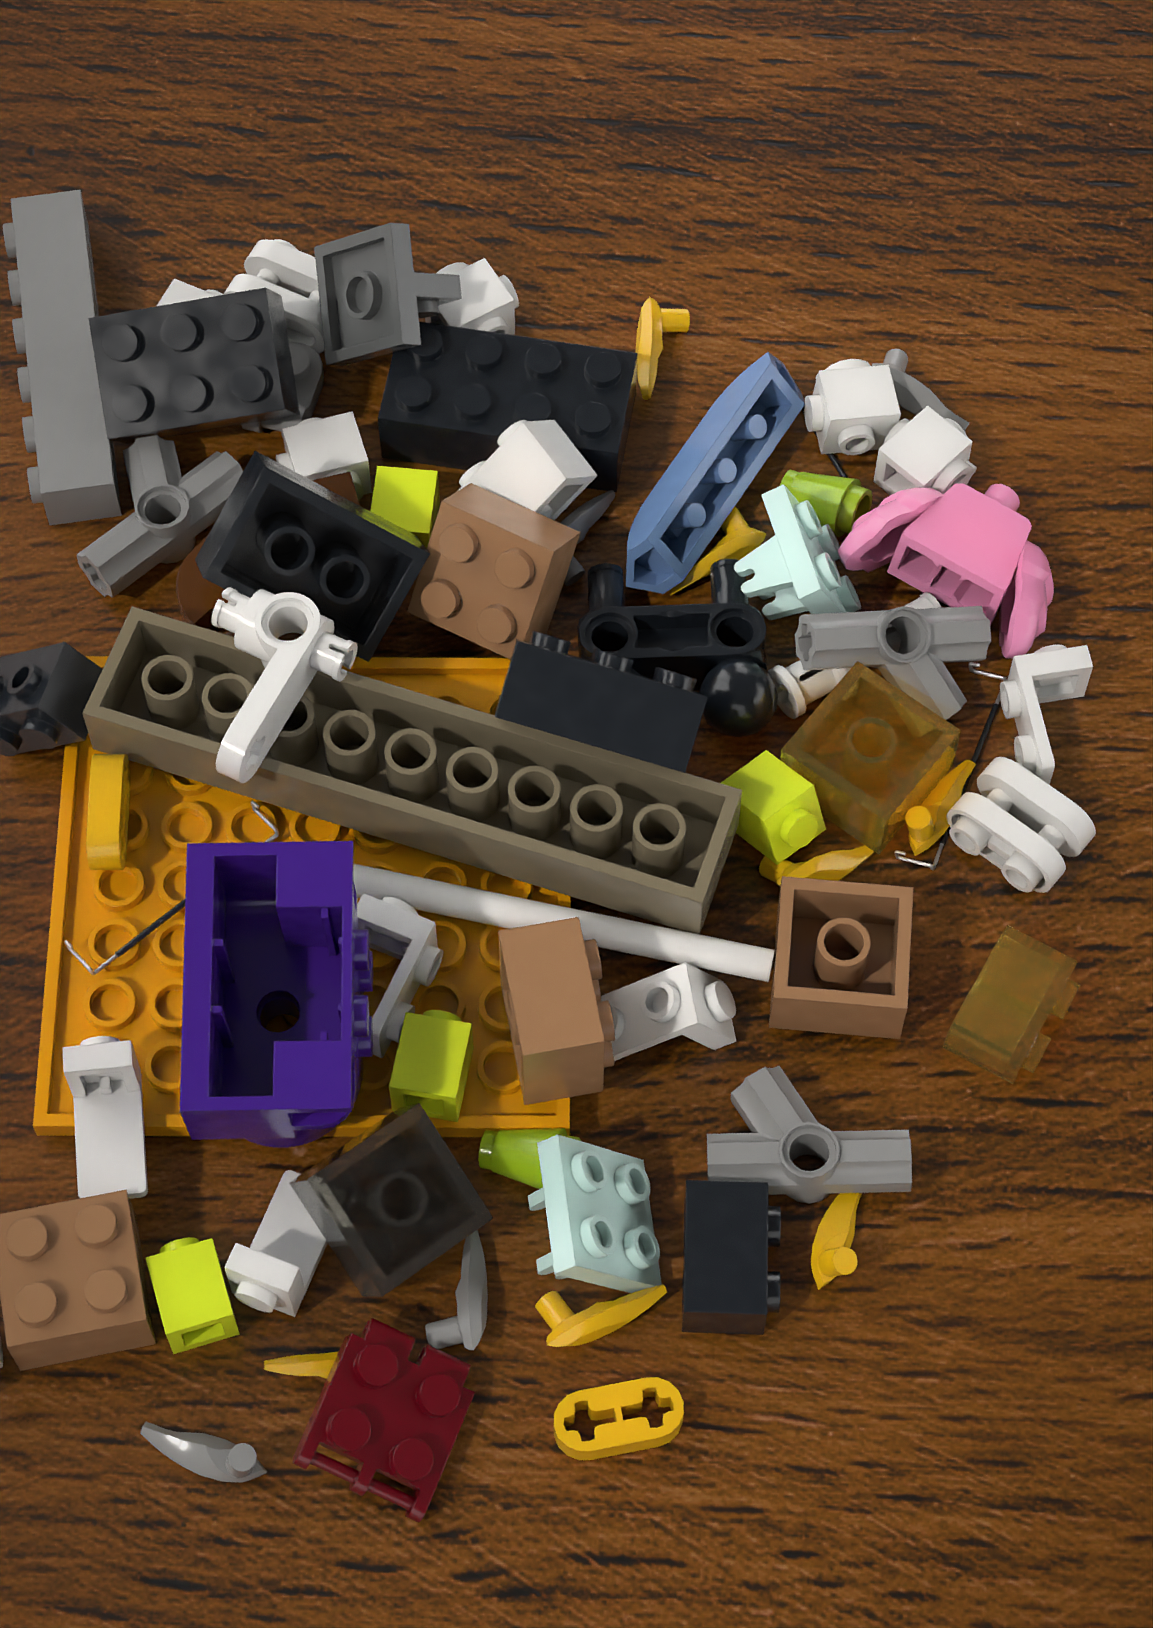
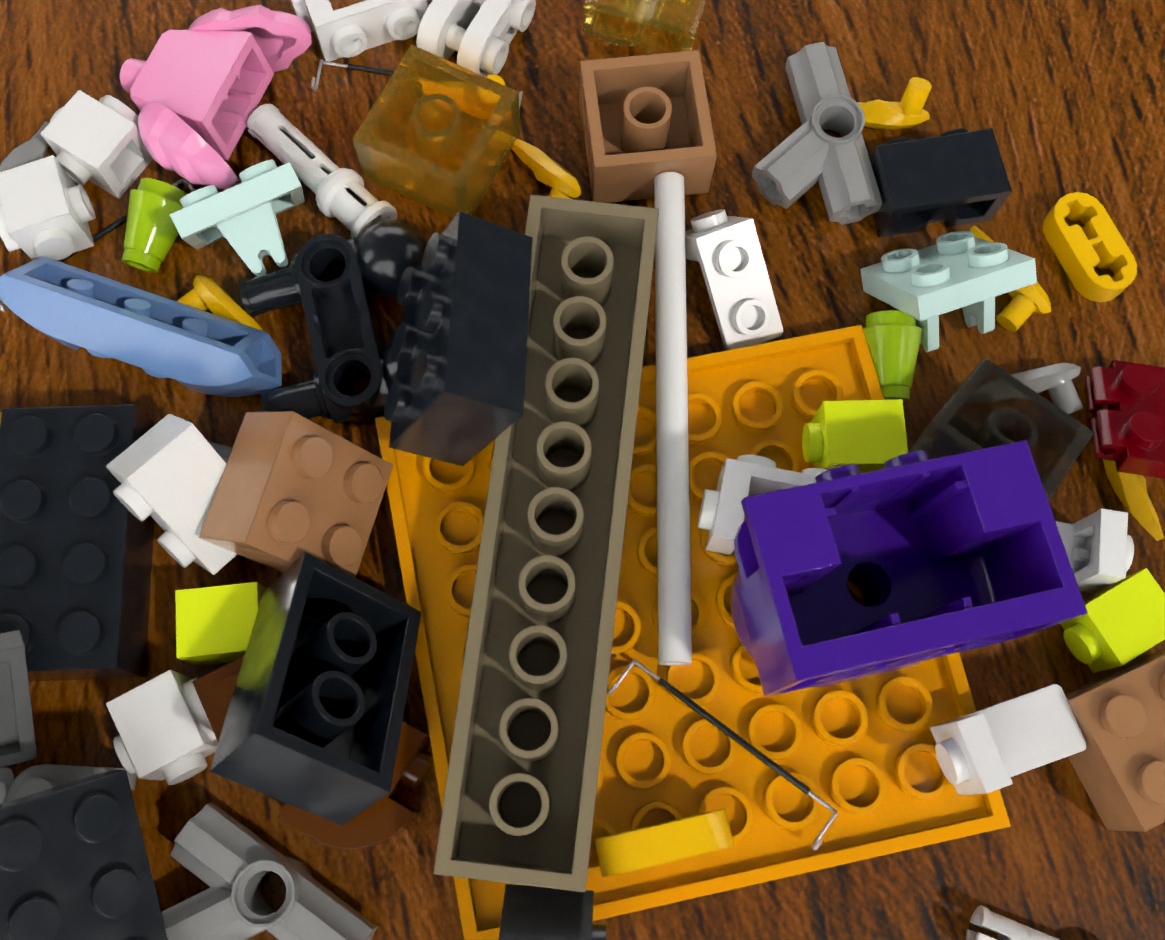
camera: 105 degrees left, 10 degrees up
(287, 670) = (448, 706): white piece -> none
(555, 1010) = (793, 326): medium nougat brick -> none
(776, 807) = (503, 194): neon yellow brick -> none
(918, 667) = (322, 120): light grey piece -> none

